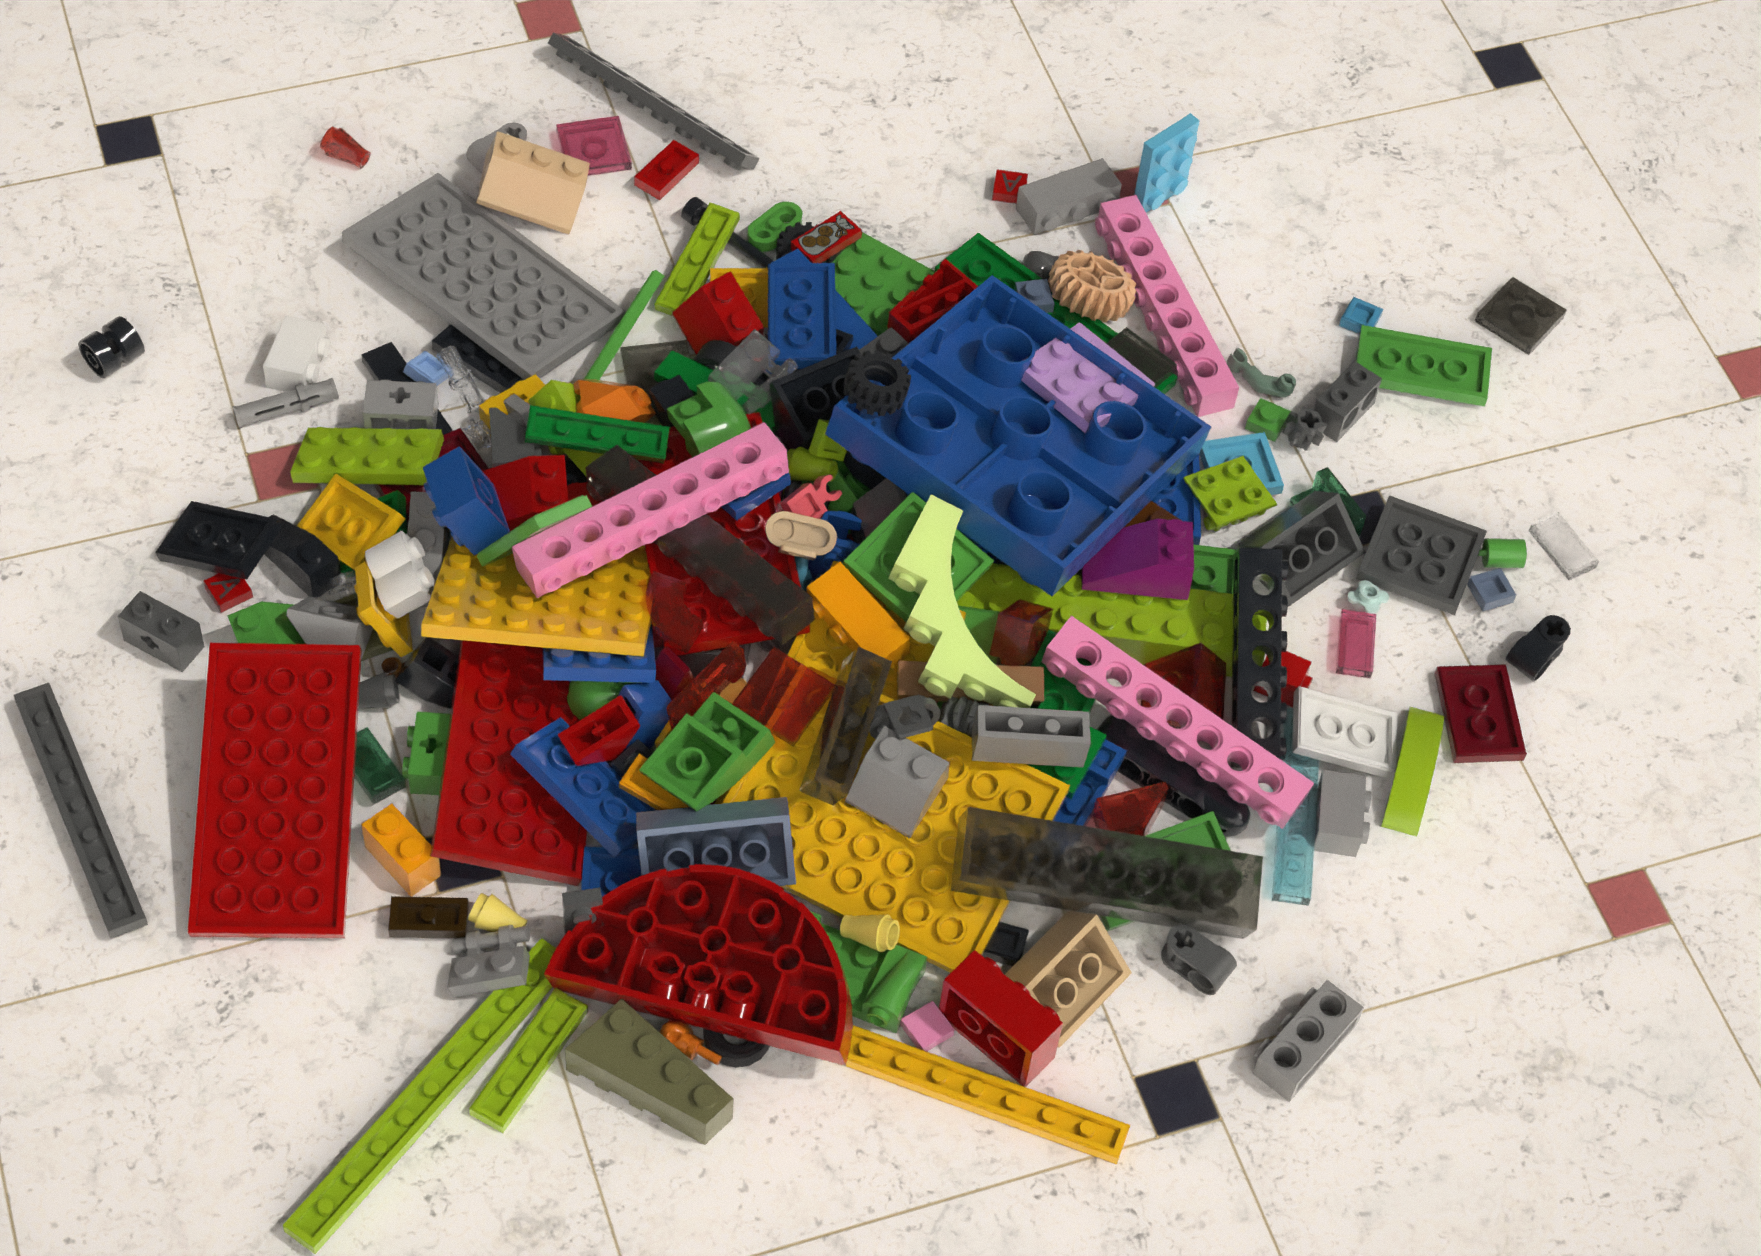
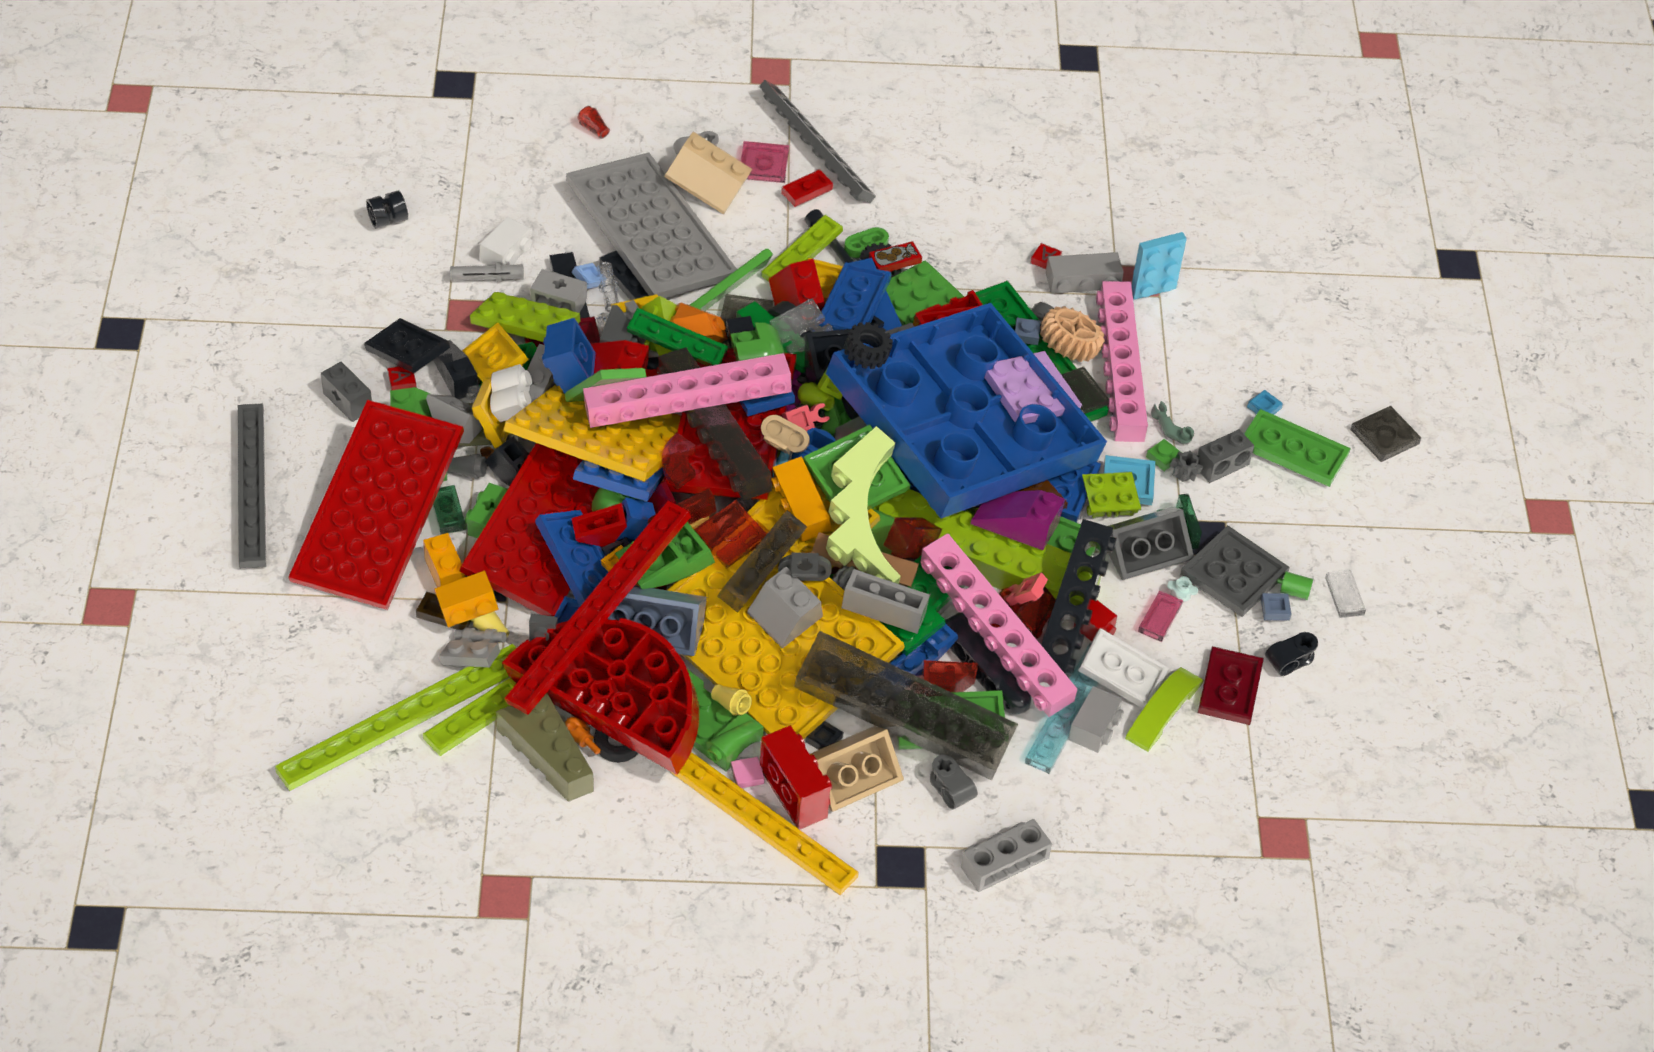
camera: 20 degrees right, 5 degrees down
(458, 895) = (466, 599): none -> light orange brick
(654, 862) = (597, 608): none -> red plate
(1196, 663) = (1028, 590): none -> coral plate

